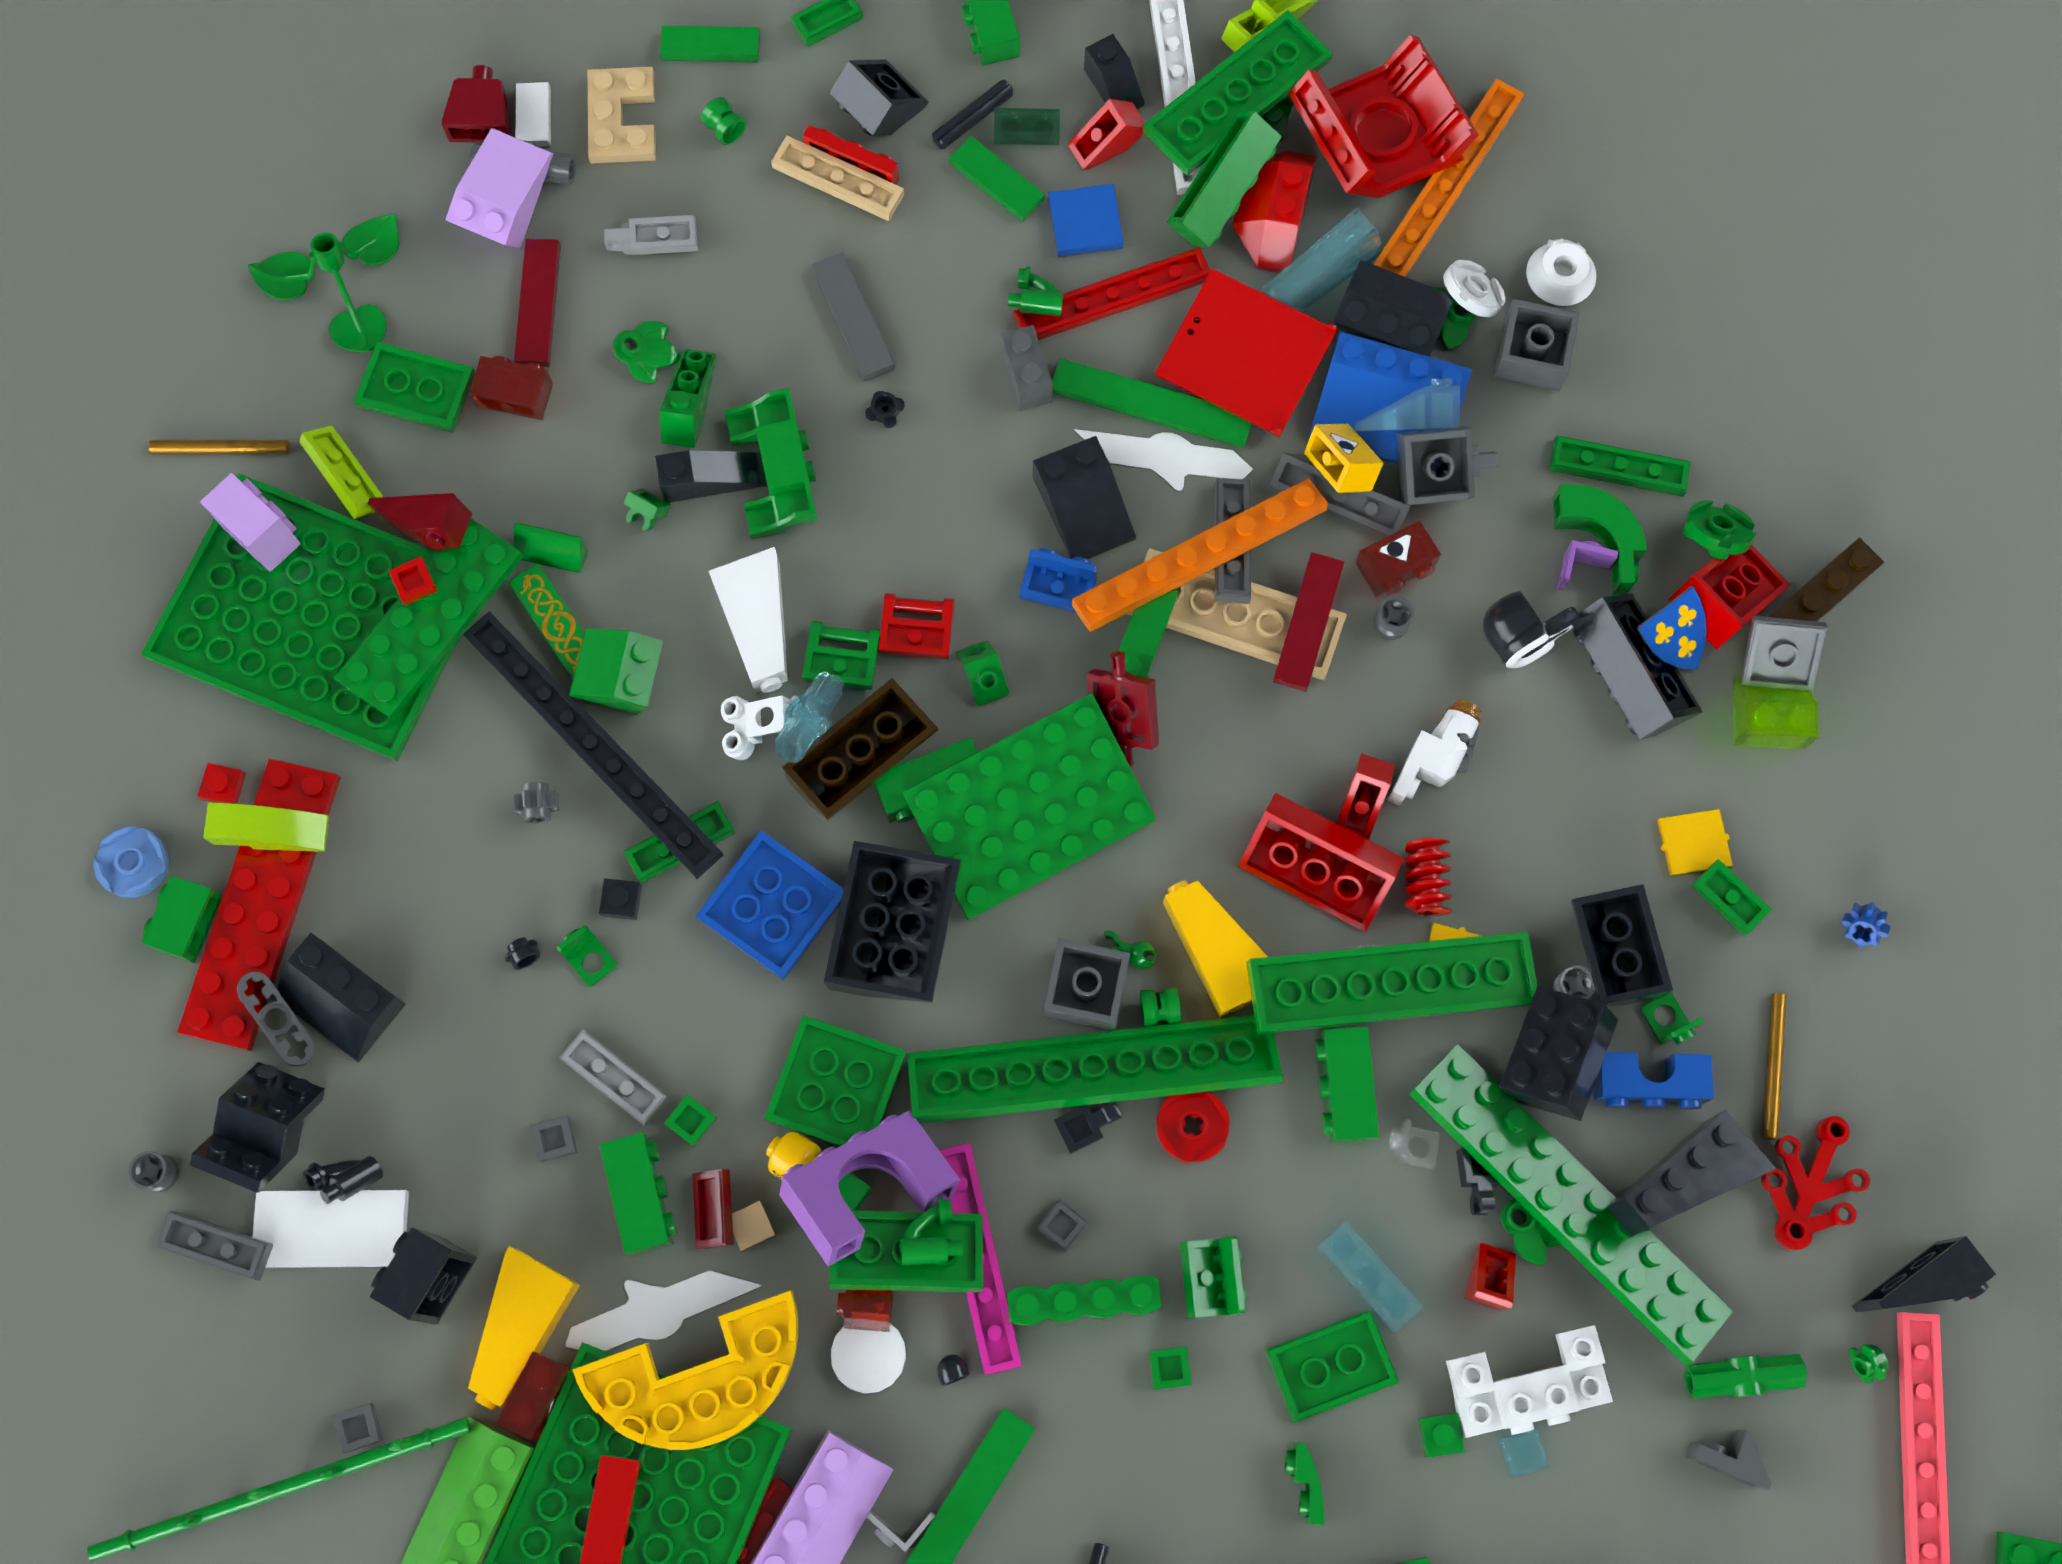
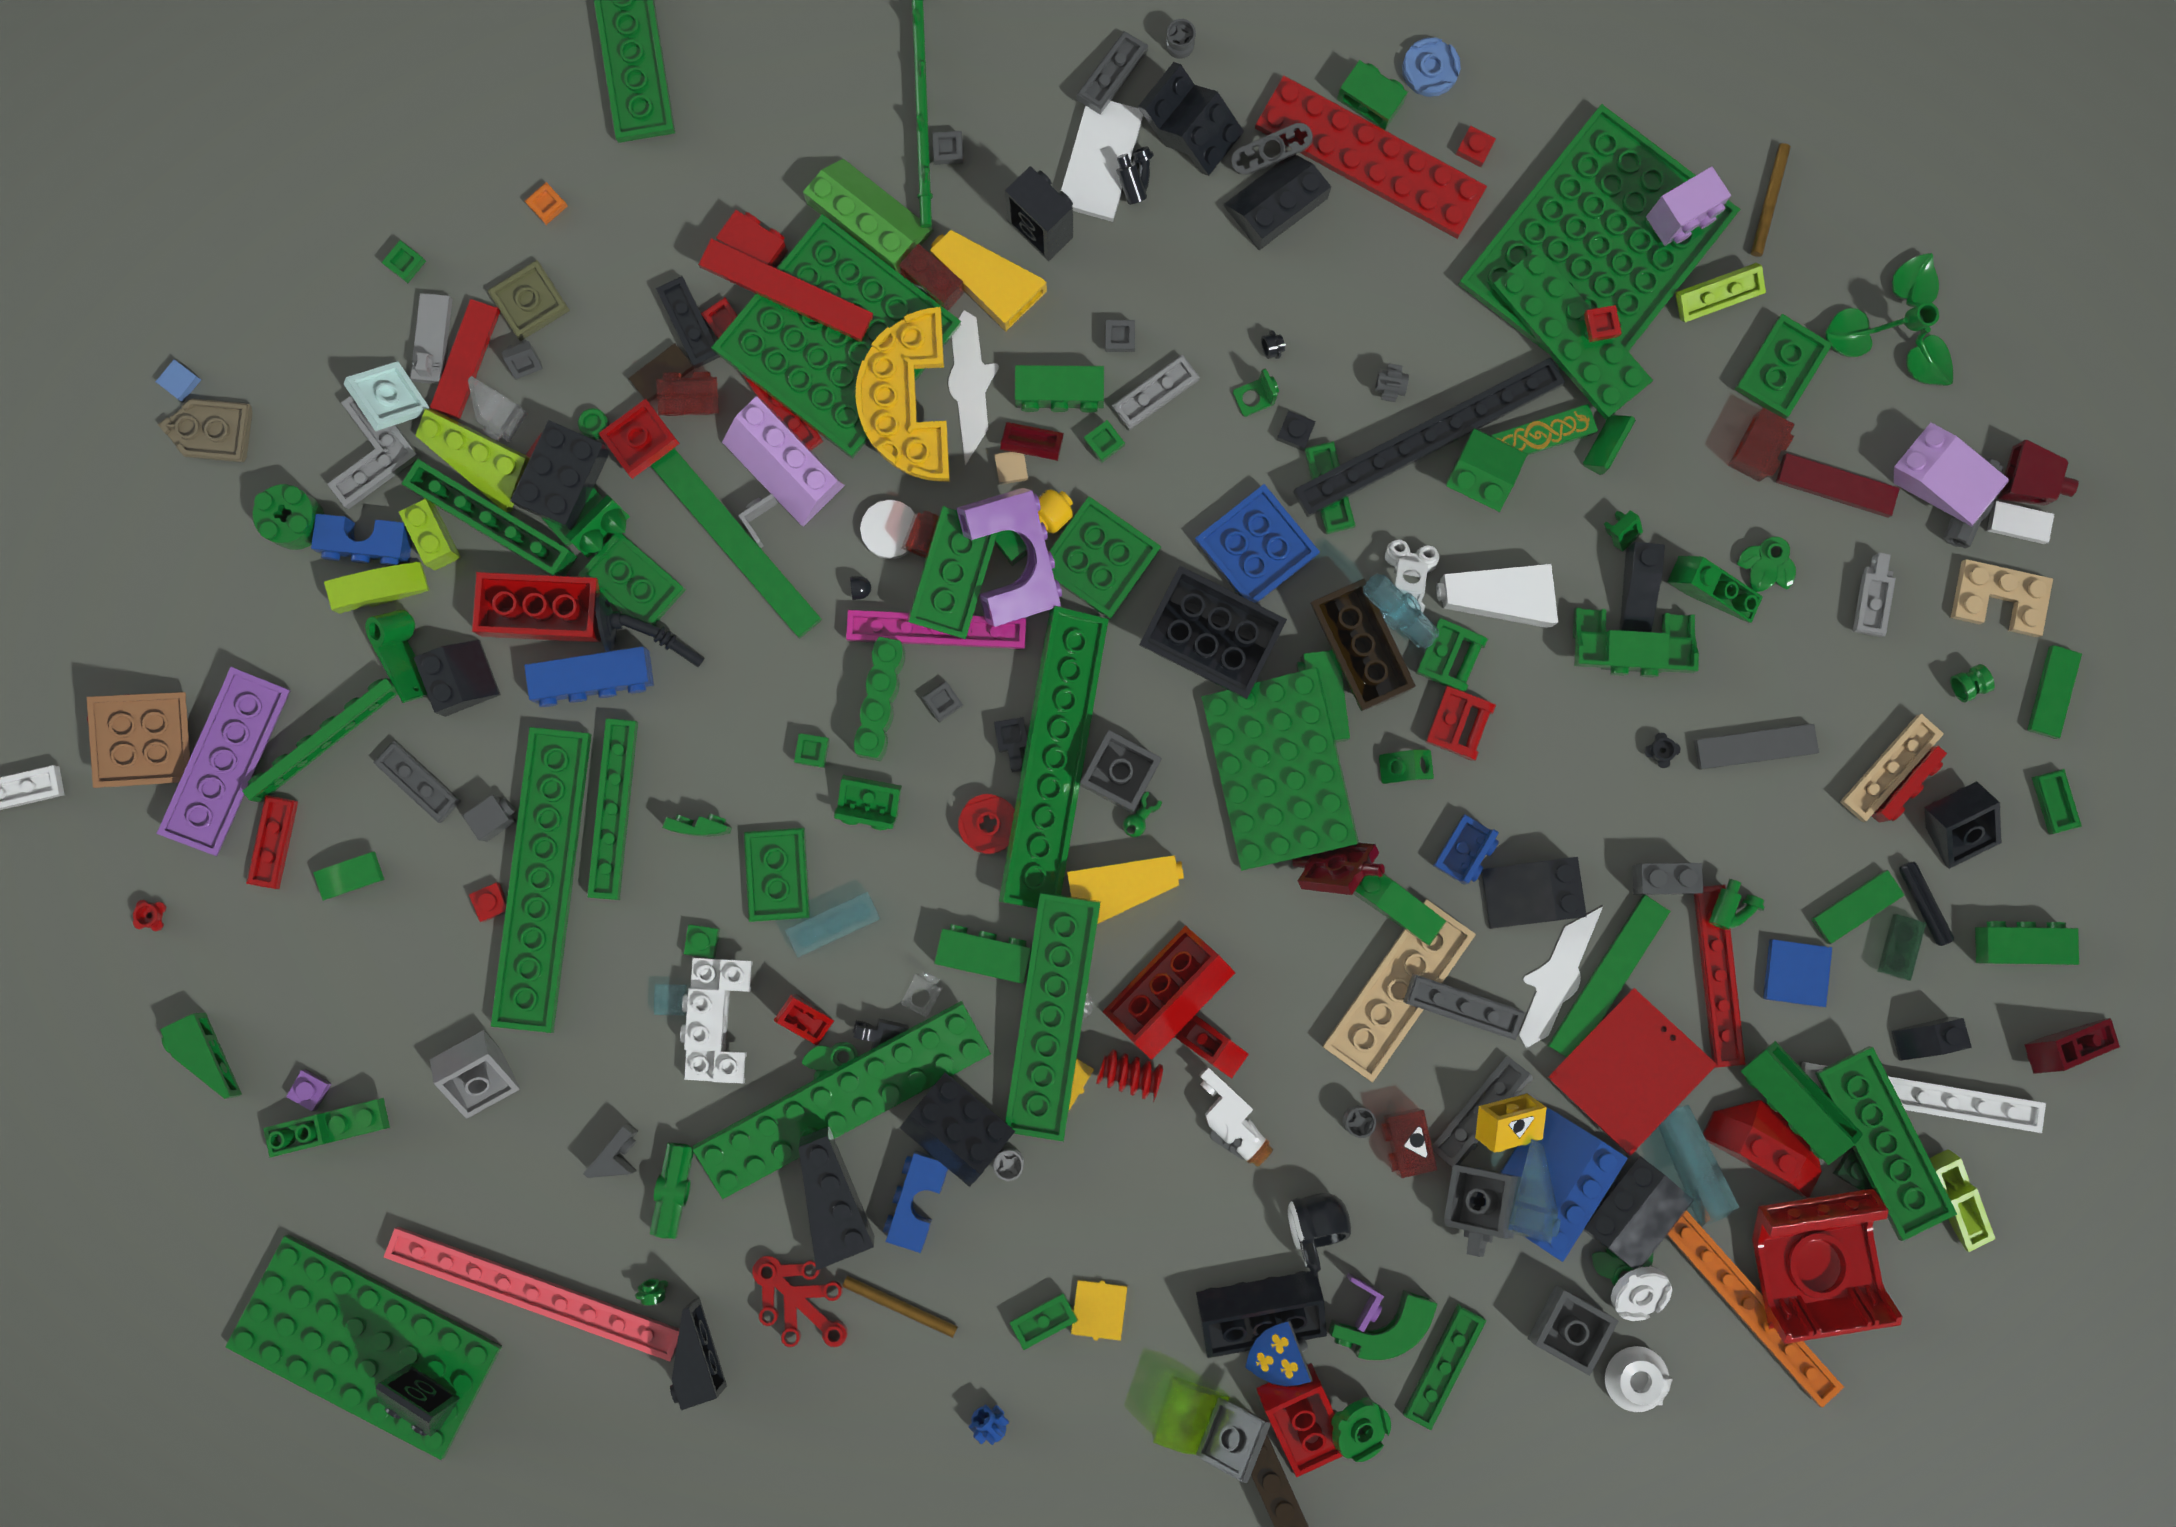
camera: 105 degrees right, 10 degrees up
(265, 827) = (1426, 169): lime slope -> none
(431, 519) = (1654, 350): dark red slope -> none
(929, 1249) = (947, 588): green plant -> none
(1107, 133) = (1875, 1016): red slope -> none
(1168, 1006) = (1088, 833): green wheel -> none
(1199, 555) = (1456, 973): orange plate -> none
(1308, 622) = (1374, 1047): dark red tile -> none
(1622, 946) = (1027, 1210): black slope -> none
(1679, 1030) = (948, 1234): green bracket -> none

